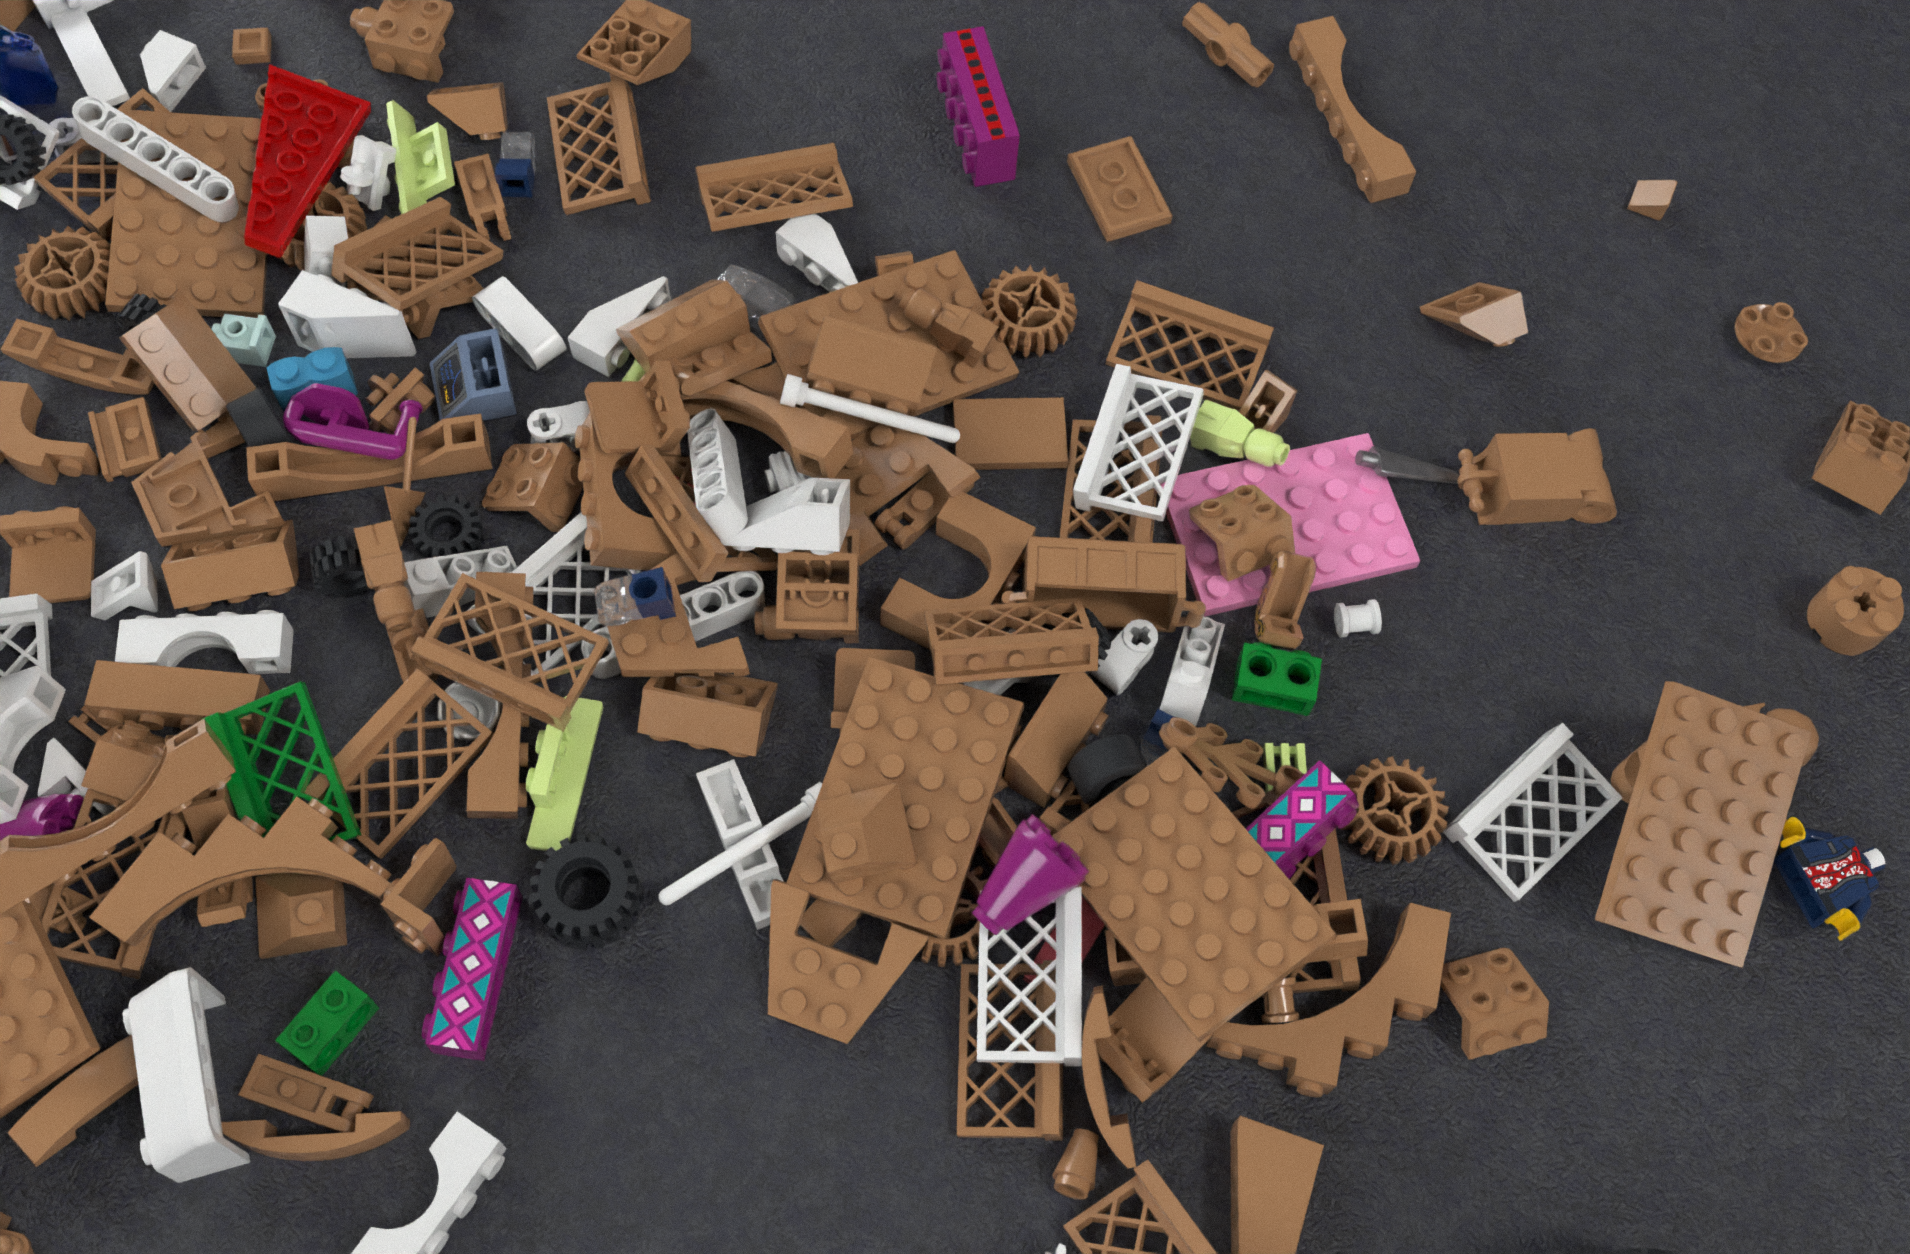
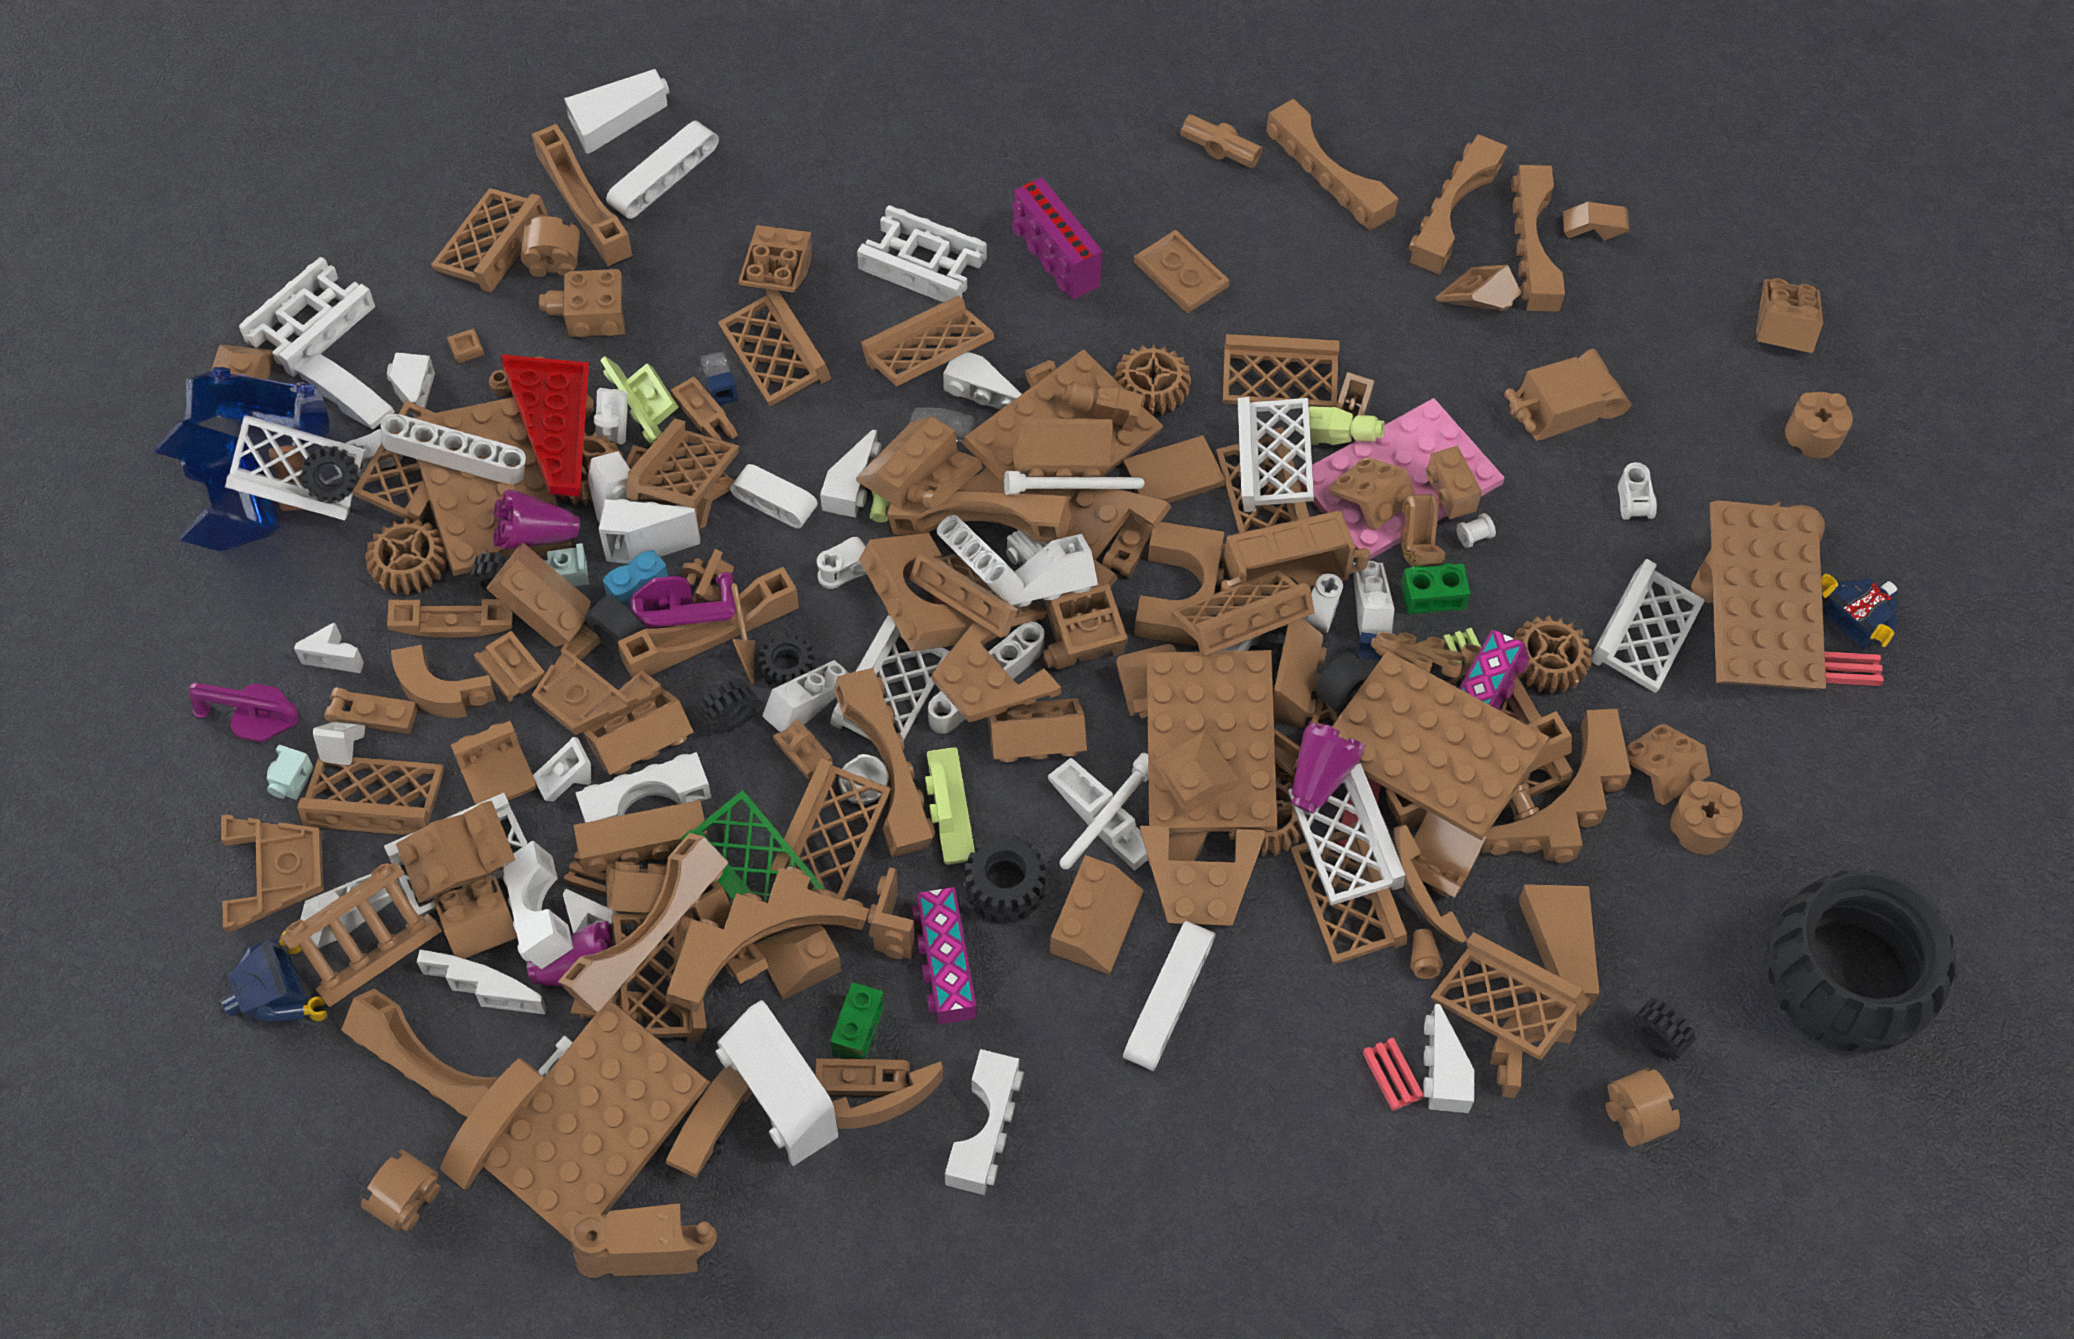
camera: 15 degrees left, 5 degrees down
(211, 273) = (531, 522): none -> magenta cone
(386, 574) = (768, 696): medium nougat piece -> none
(473, 377) = (759, 544): sand blue slope -> none
(474, 108) = (668, 343): medium nougat slope -> none
(486, 676) = (881, 748): medium nougat fence -> none
(537, 480) = (839, 604): medium nougat bracket -> none
(635, 598) = (962, 660): leg -> none
(639, 411) = (907, 529): medium nougat bracket -> none
(680, 976) = (1096, 916): none -> medium nougat slope
(728, 1114) = (1169, 995): none -> white beam
(801, 104) = (912, 271): none -> white fence
(1347, 549) = (1453, 482): none -> medium nougat brick
(1397, 465) = (1462, 415): flat silver bar -> none
(1532, 161) = (1478, 167): none -> medium nougat arch
(1540, 1090) = (1706, 817): none -> medium nougat brick
(1562, 321) = (1542, 280): none -> medium nougat arch
(1582, 637) = (1638, 496): none -> white piece
(1652, 197) = (1574, 170): slope -> none
(1669, 268) = (1604, 218): none -> medium nougat slope
(1770, 332) = (1692, 245): medium nougat dish -> none
(1795, 938) = (1853, 663): none -> coral tile

